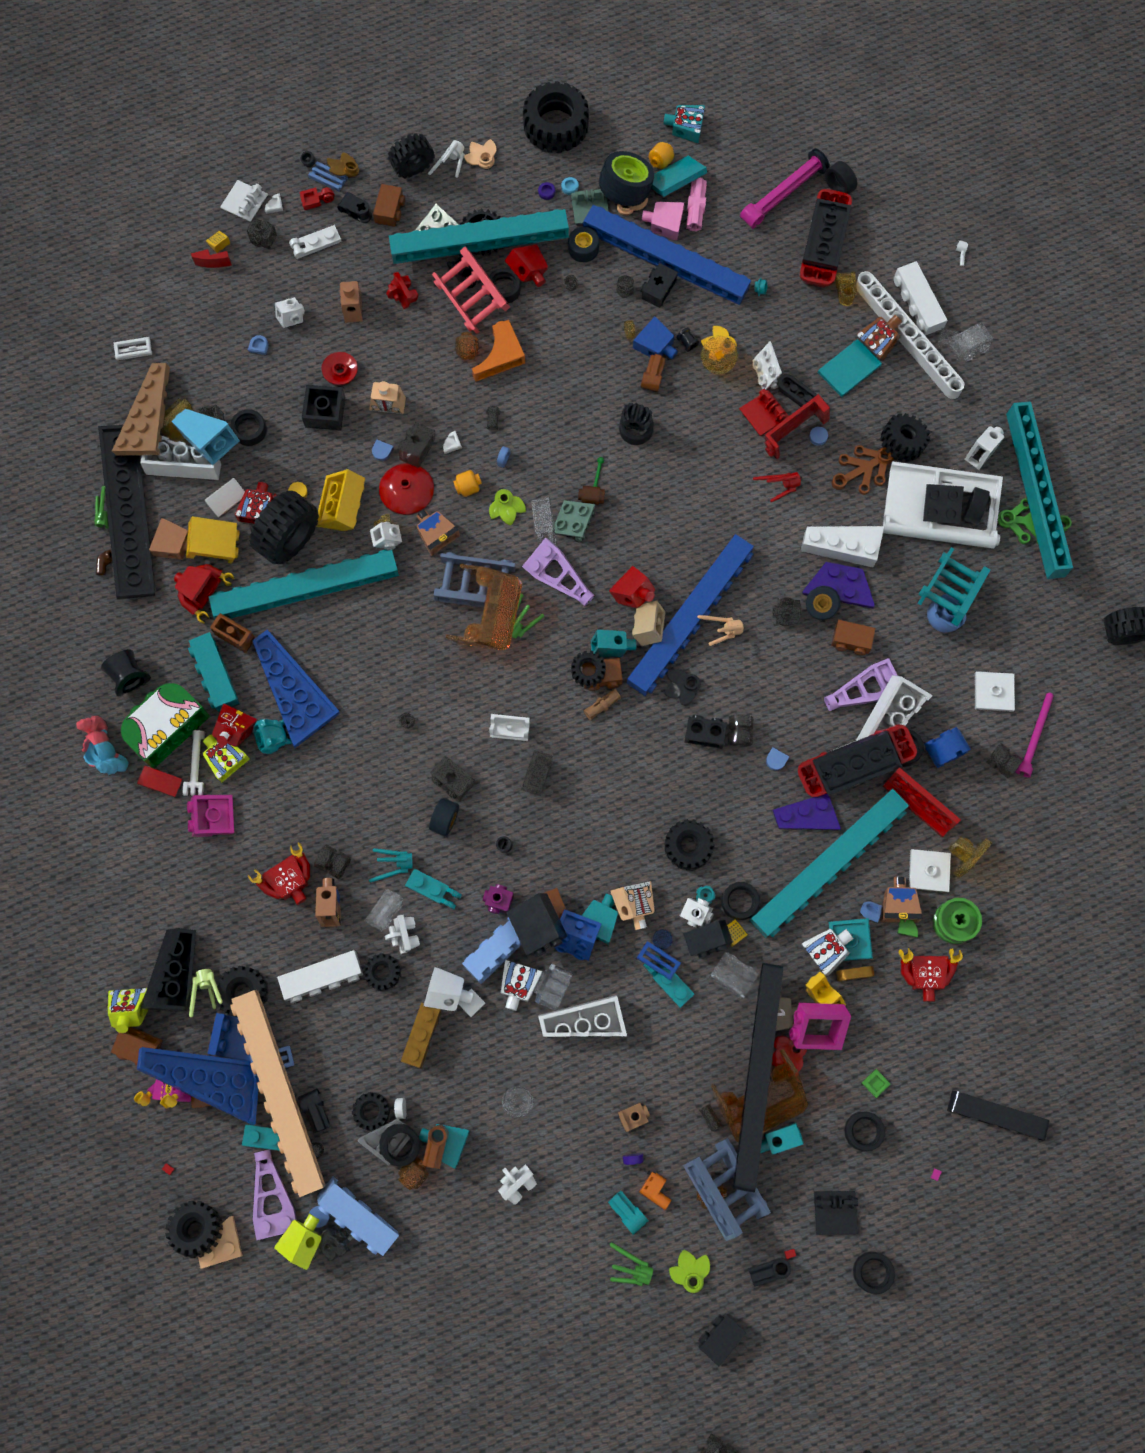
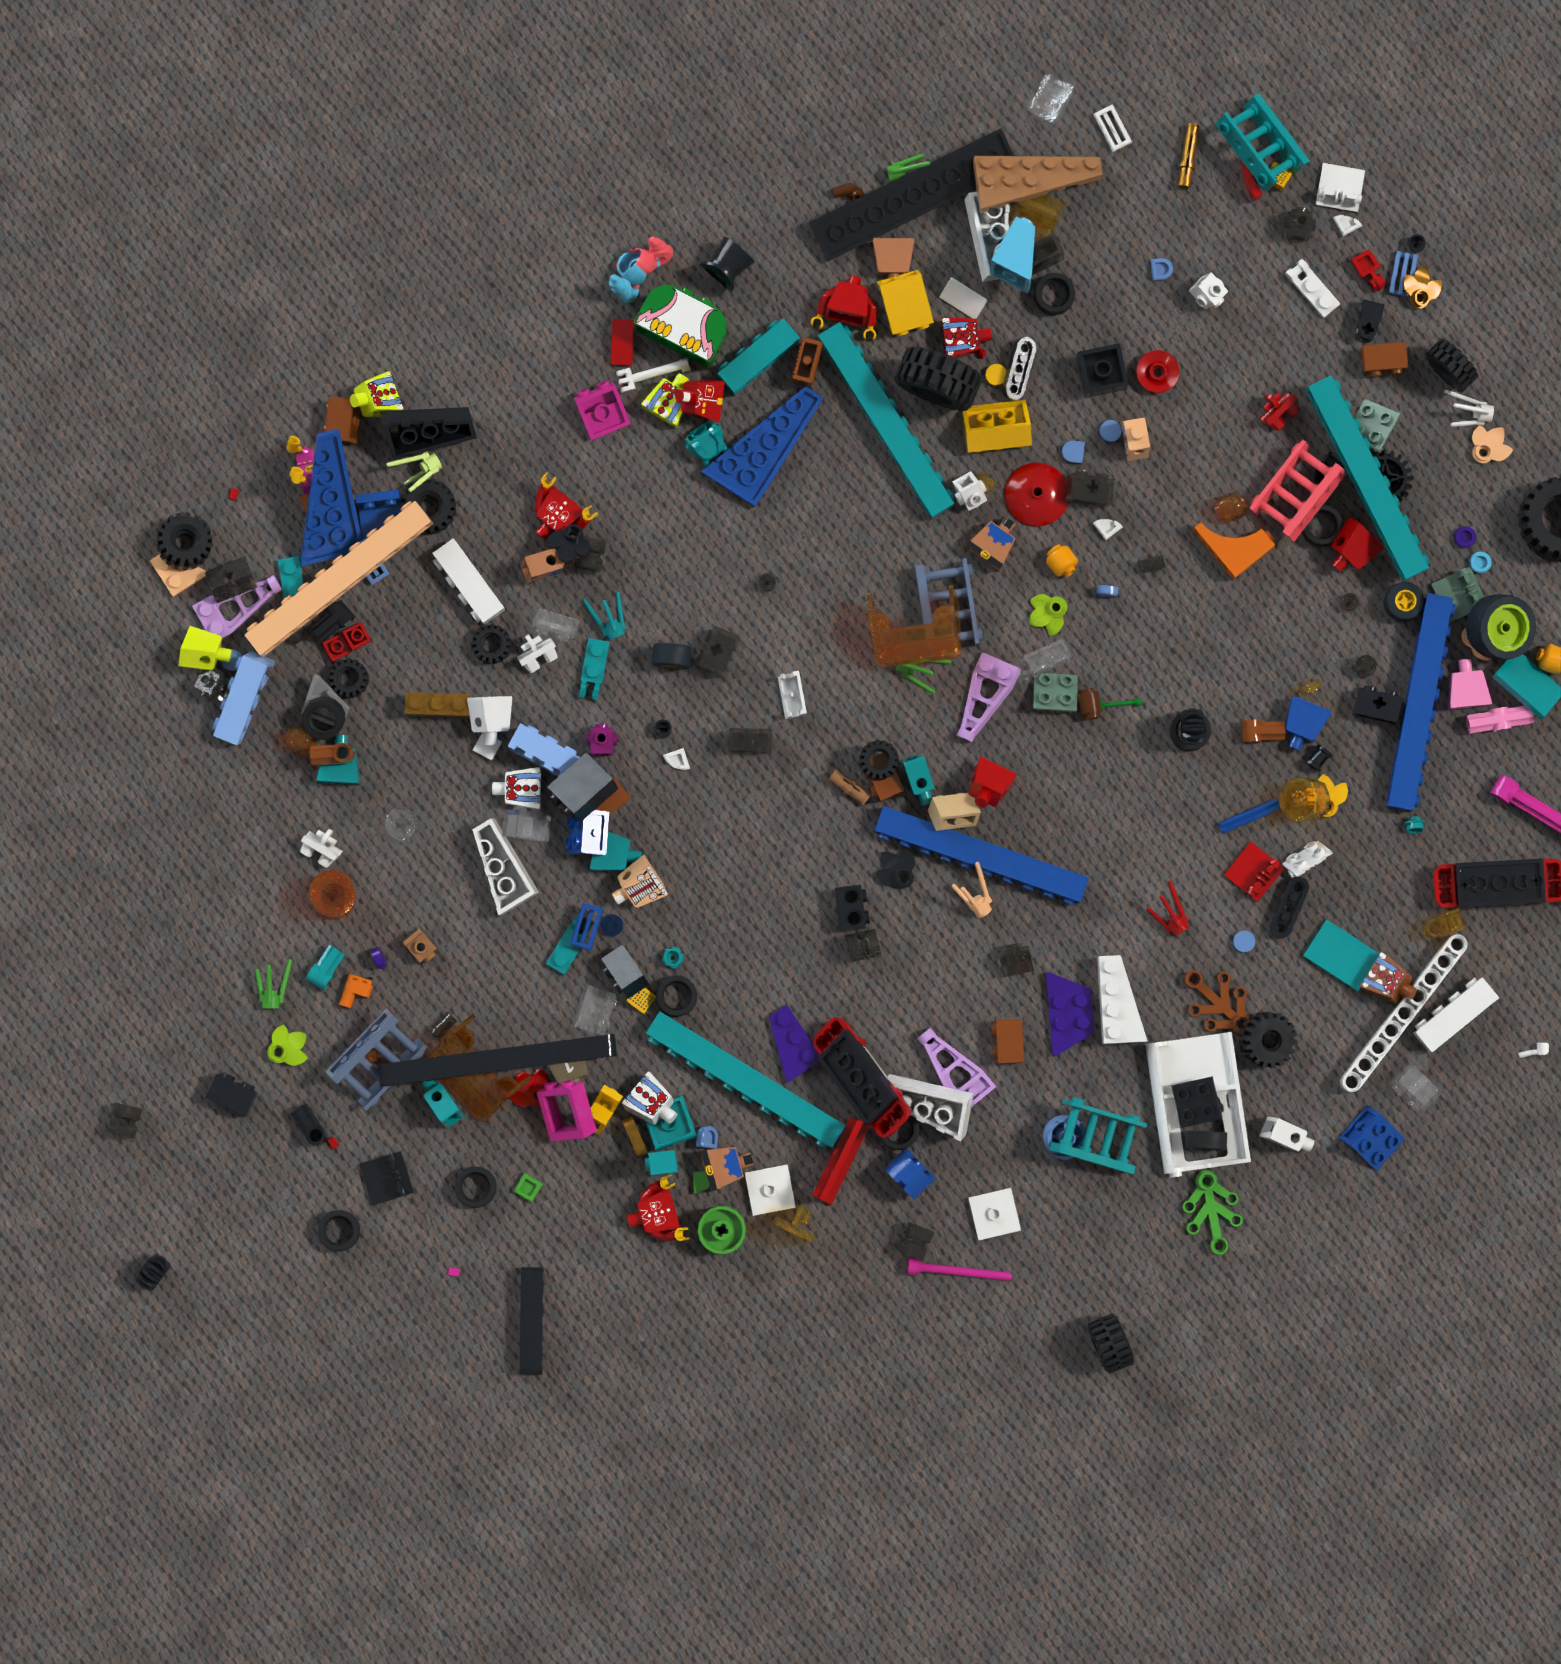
camera: 70 degrees right, 10 degrees up
(91, 385) = (1051, 99): none -> clear bracket
(183, 302) = (1185, 179): none -> pearl gold pin
(190, 232) = (1274, 131): none -> teal fence
(244, 1195) = (231, 579): none -> clear smoke brick
(308, 476) = (1024, 361): none -> plate
(318, 876) = (568, 546): none -> black plate
(337, 1104) = (346, 642): none -> red slope
(351, 297) = (1243, 357): nougat torso -> none
(374, 418) = (1110, 431): none -> medium blue tile
(400, 1108) = (360, 707): white tile -> none
(534, 840) = (677, 759): none -> white tile
(558, 1173) = (324, 885): none -> clear orange wheel
(690, 912) = (649, 953): white brick -> none
(691, 830) = (720, 908): black tyre -> none
(718, 403) = (1249, 816): none -> blue axle
(776, 759) = (844, 993): medium blue tile -> none
(814, 406) = (1269, 927): red panel -> none
(827, 598) = (1045, 1000): black wheel -> none
(889, 953) = (661, 1163): none -> teal arch
(1000, 385) = (1372, 1137): none -> blue bracket
(1039, 491) = (1247, 1206): teal brick -> none

